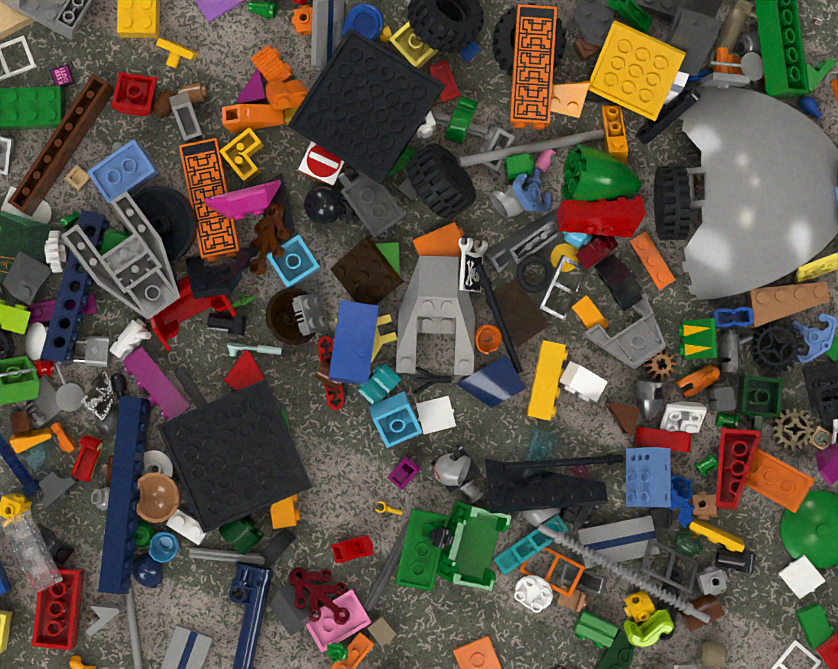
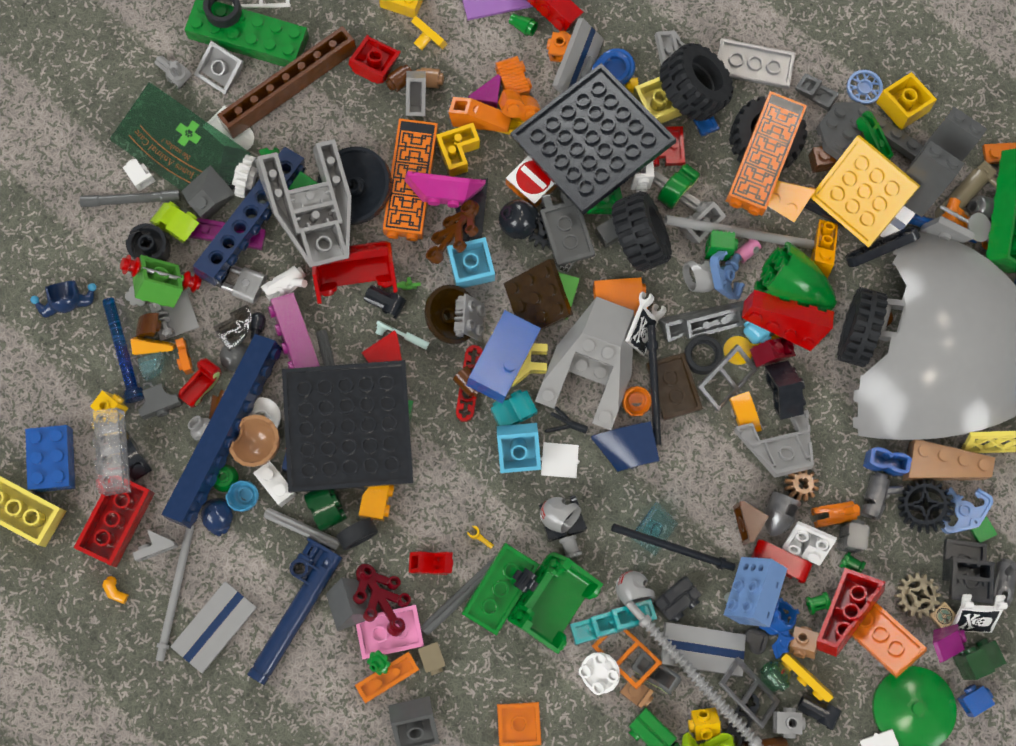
camera: 15 degrees right, 10 degrees down
(35, 340) = (192, 253): white dish -> none
(62, 76) = (312, 22): tile -> none
(69, 394) = (204, 316): light grey piece -> none
(78, 177) = (291, 118): tan tile -> none
(124, 170) = (340, 121): medium blue piece -> none
(217, 279) = (392, 251): black wing -> none
(404, 472) = (509, 505): magenta slope -> none
(538, 489) = (629, 562): black wing -> none
(546, 380) = (681, 462): yellow brick -> none
(580, 471) = (686, 565): clear pink plant -> none
(582, 381) = (718, 474): white brick -> none
(652, 260) = (824, 381): orange plate -> none
(697, 339) = (847, 470): green slope -> none
(759, 399) = (892, 551): dark green hinge -> none

